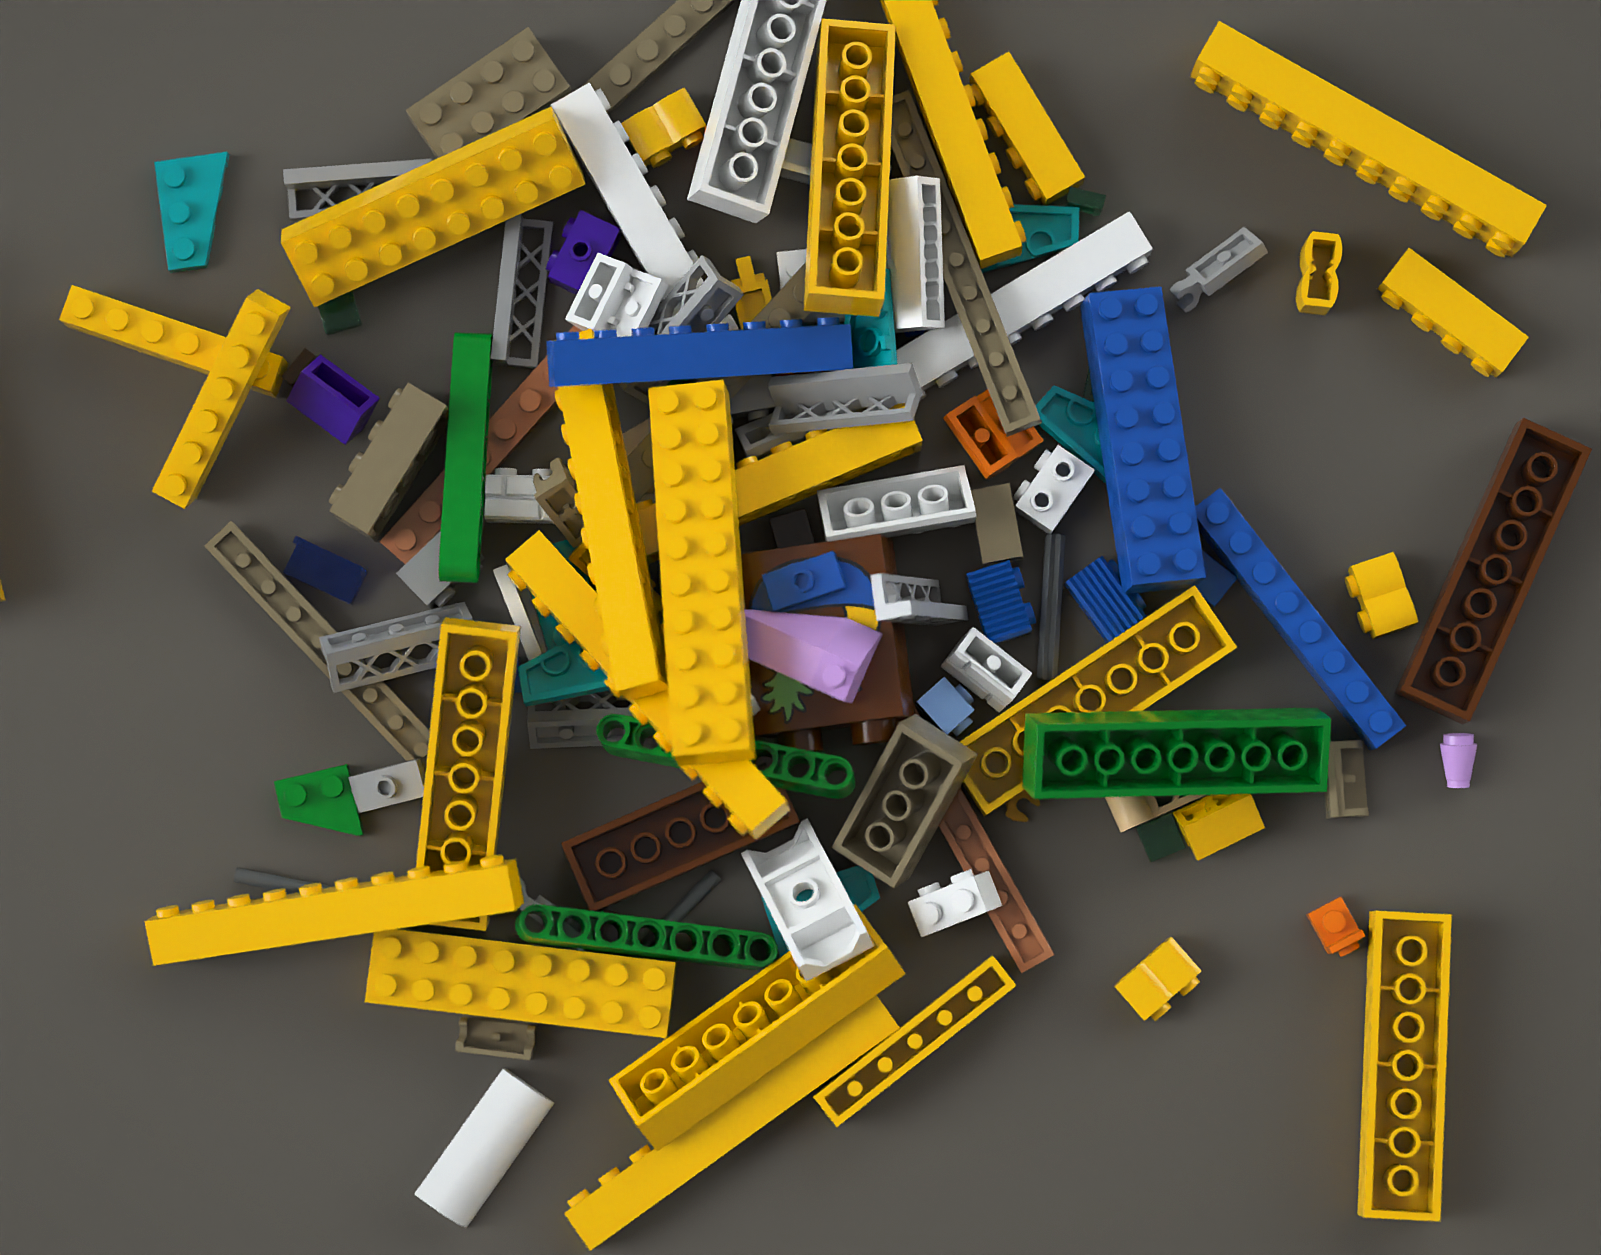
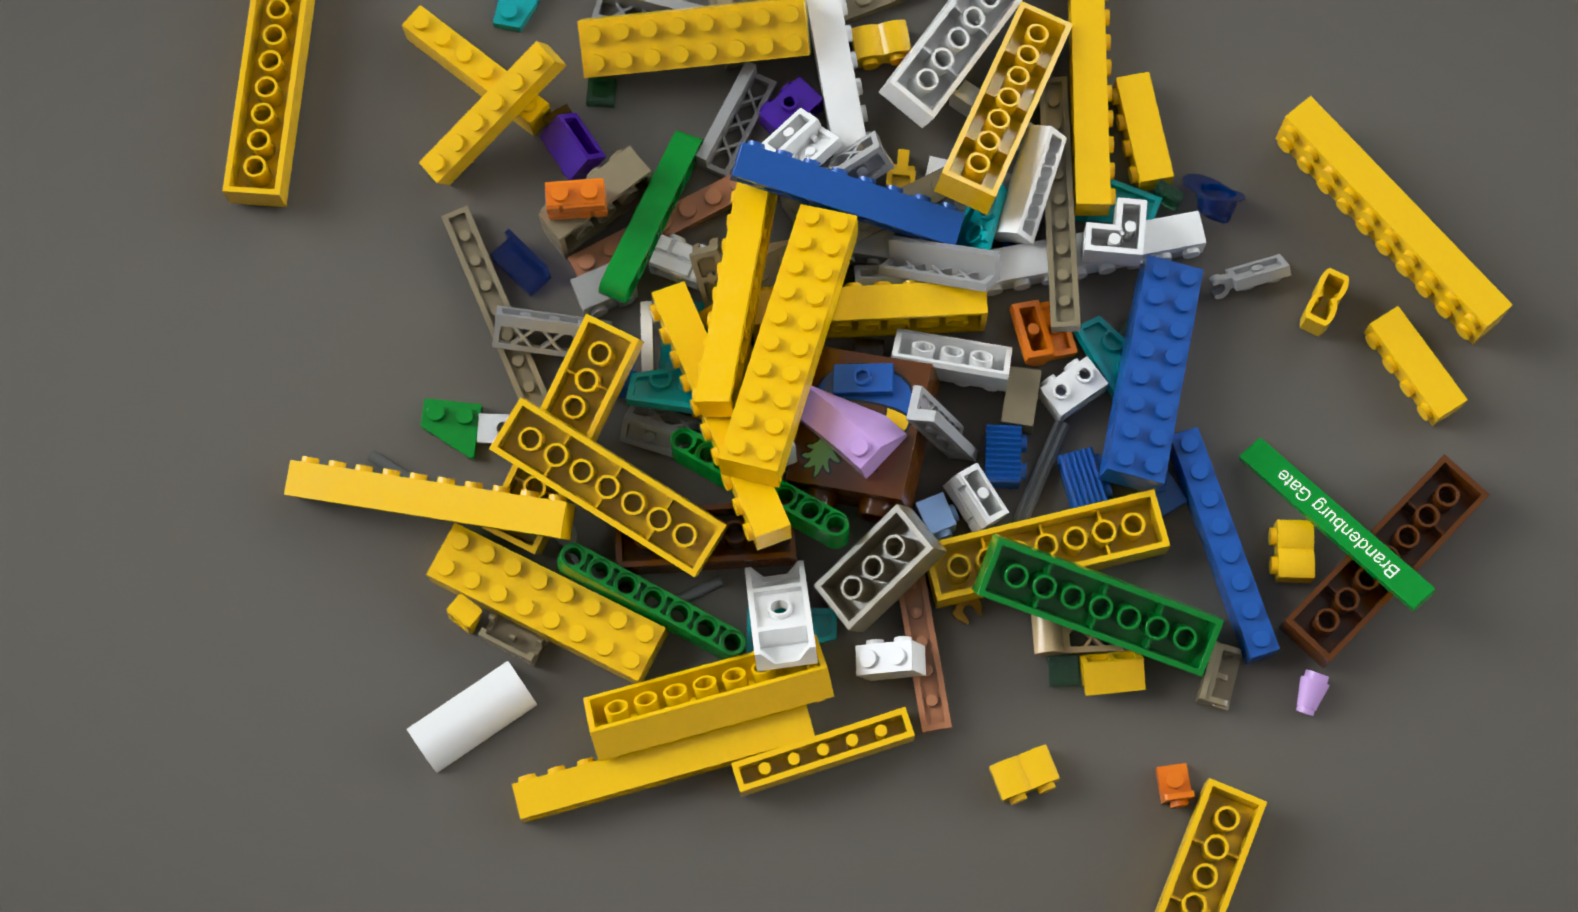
camera: 20 degrees right, 10 degrees down
(370, 479) = (576, 199): none -> orange brick
(427, 1028) = (464, 613): none -> yellow slope
(549, 826) = (608, 487): none -> yellow brick
(1052, 291) = (1117, 242): none -> white brick
(1141, 182) = (1213, 197): none -> clear blue piece
(1423, 550) = (1337, 525): none -> green tile

